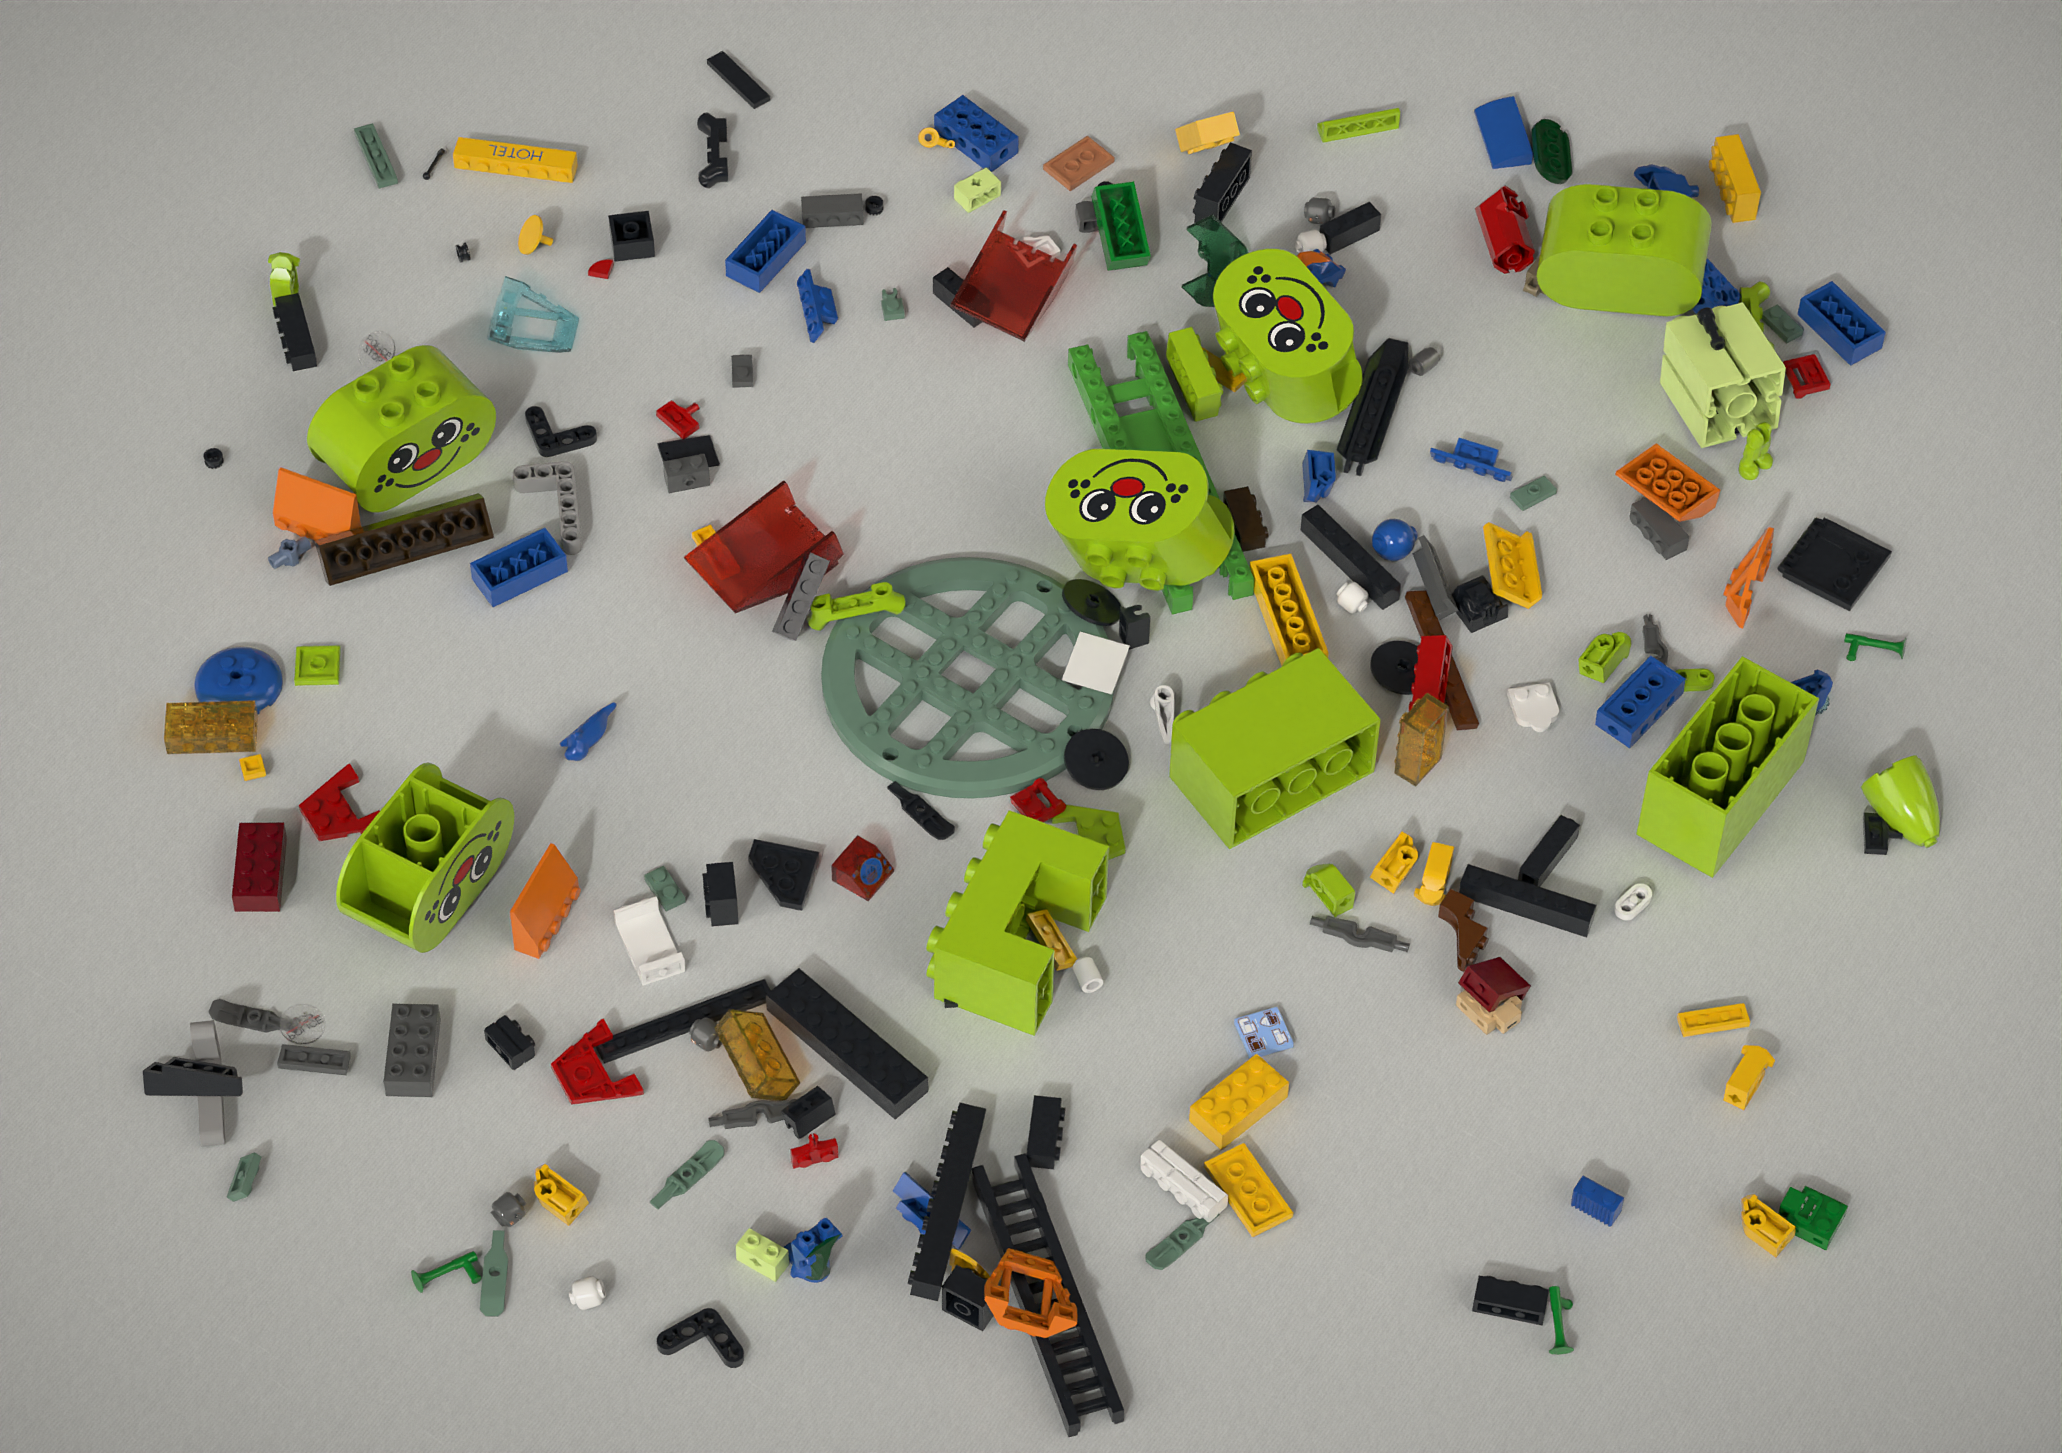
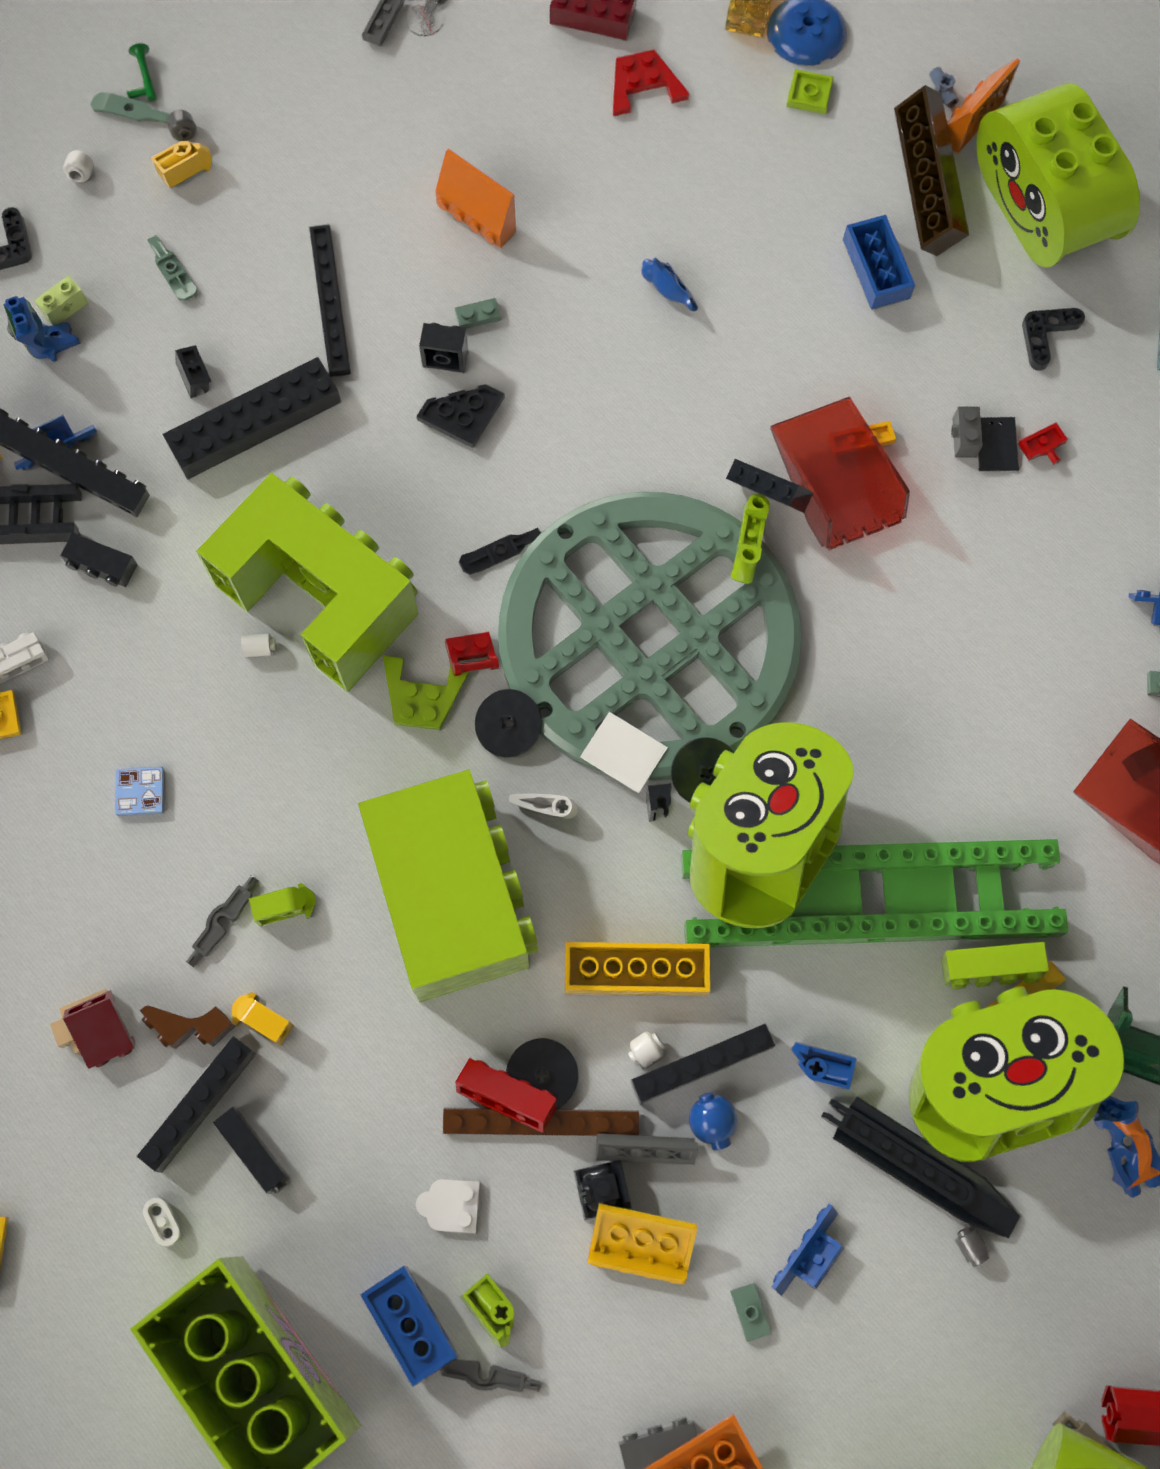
camera: 105 degrees right, 20 degrees up
(213, 463) = (1072, 54): black bush -> none
(252, 767) = (705, 22): yellow plate -> none
(412, 1050) = (365, 84): dark grey brick -> none
(424, 859) = (531, 96): lime brick -> none
(510, 1042) = (349, 158): black brick -> none
(554, 477) = (957, 317): light grey beam -> none
(584, 1075) = (296, 207): red wing -> none
(648, 941) = (420, 289): white panel -> none
(704, 1034) = (303, 309): dark grey head -> none
(742, 371) = (1096, 516): dark grey bracket -> none
(748, 1115) = (212, 326): dark grey piece -> none
(757, 1055) = (256, 336): clear yellow brick -> none
(814, 1152) = (148, 359): red plate -> none
(861, 868) = (443, 477): clear red slope -> none
(1051, 937) = (293, 625): yellow plate -> none
(1238, 1101) = (64, 741): yellow brick -> none
(1246, 518) = (784, 966): dark brown brick -> none
(1396, 863) = (282, 974): yellow piece -> none
(1420, 739) = (410, 1044): clear yellow brick -> none
(1695, 680) = (436, 1406): lime plate -> none

